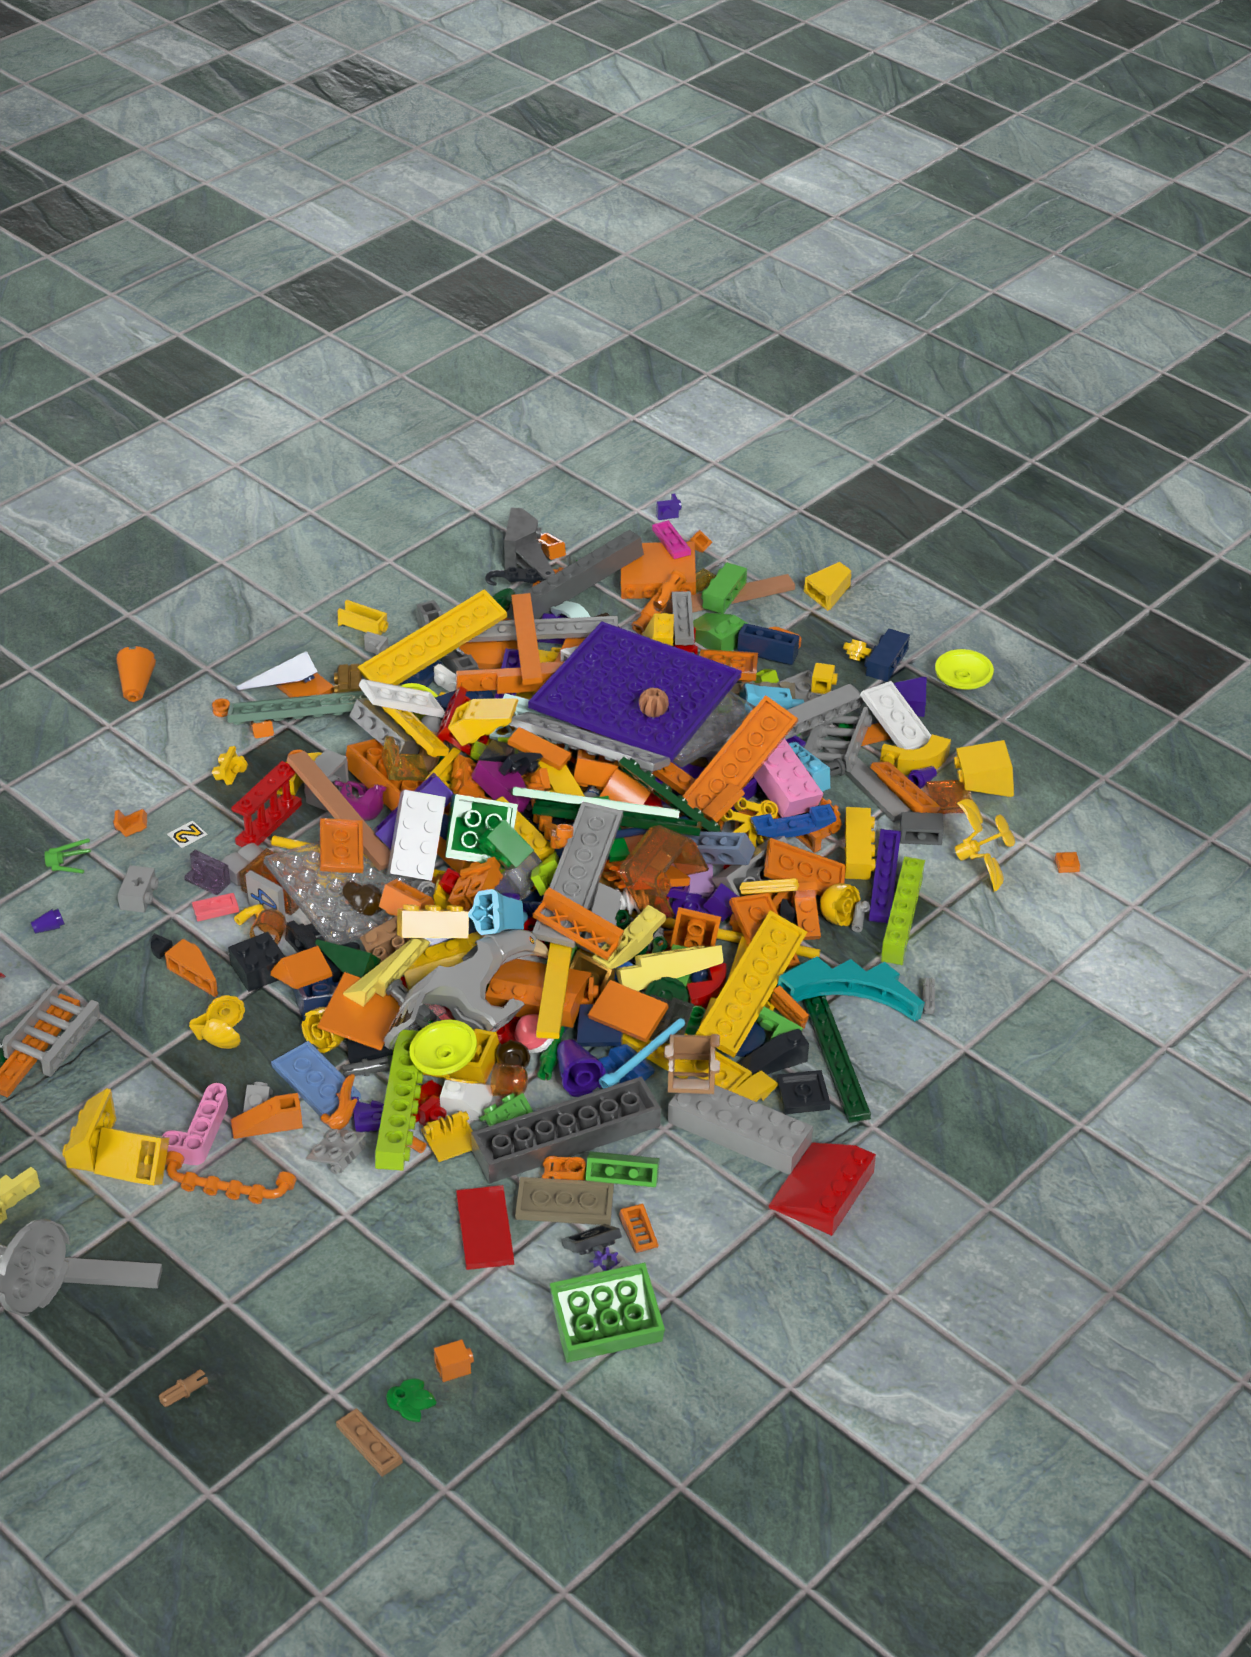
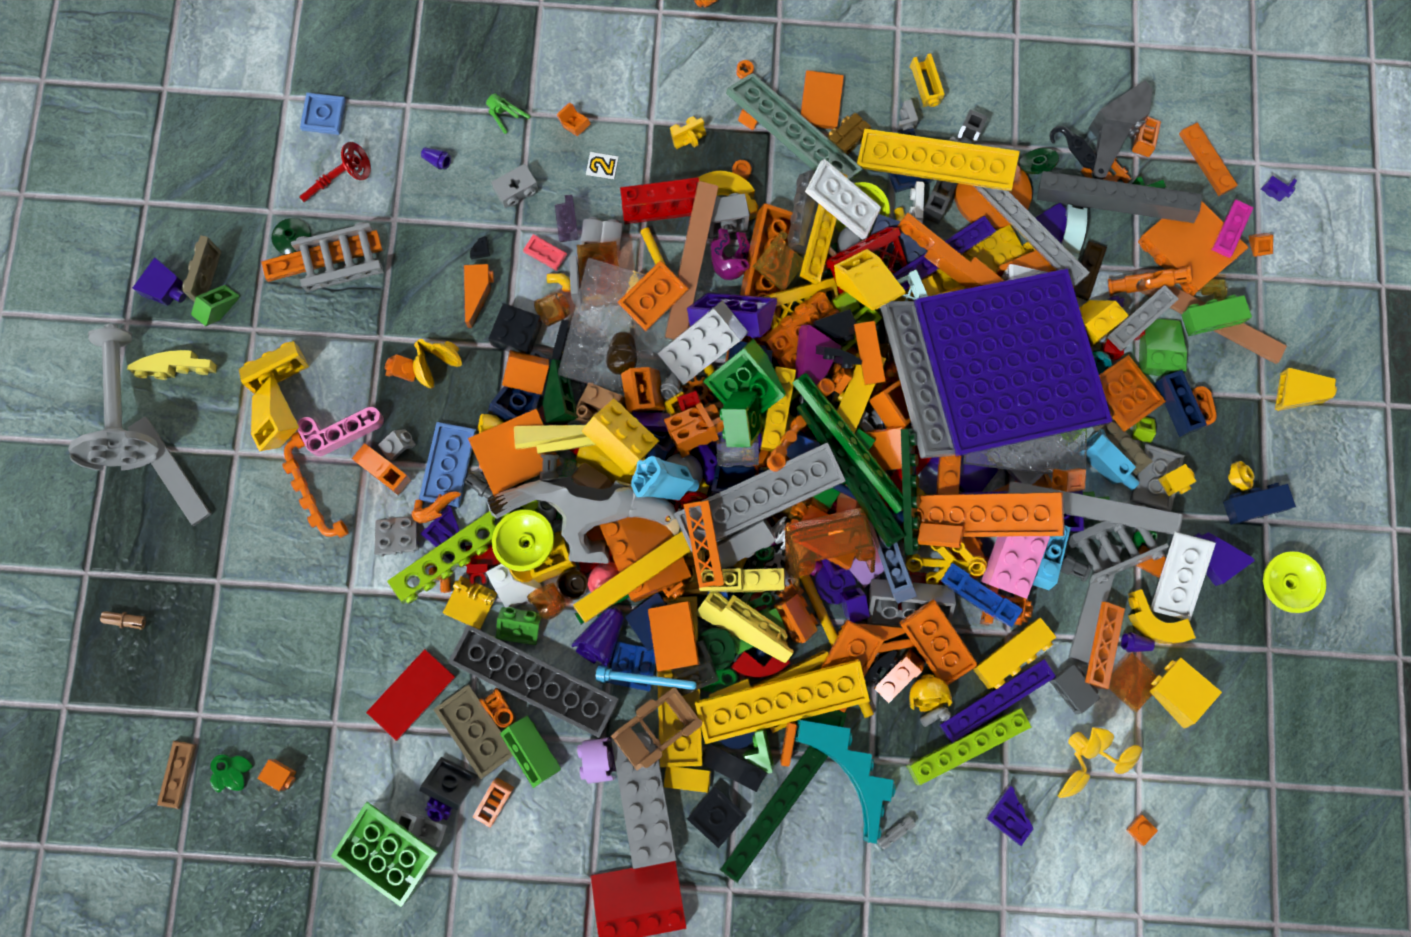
camera: 45 degrees right, 35 degrees up
(196, 1052) = (400, 367): none -> orange bracket
(289, 672) = (818, 88): wedge -> none
(526, 639) = (996, 229): orange tile -> none
(544, 873) = (746, 466): lime slope -> none
(600, 528) = (1208, 159): none -> orange plate
(653, 702) = (1002, 392): nougat piece -> none
(677, 1128) = (597, 760): none -> lavender brick
(769, 886) = (890, 636): yellow axle -> none
(984, 923) = (1010, 817): none -> dark purple wing

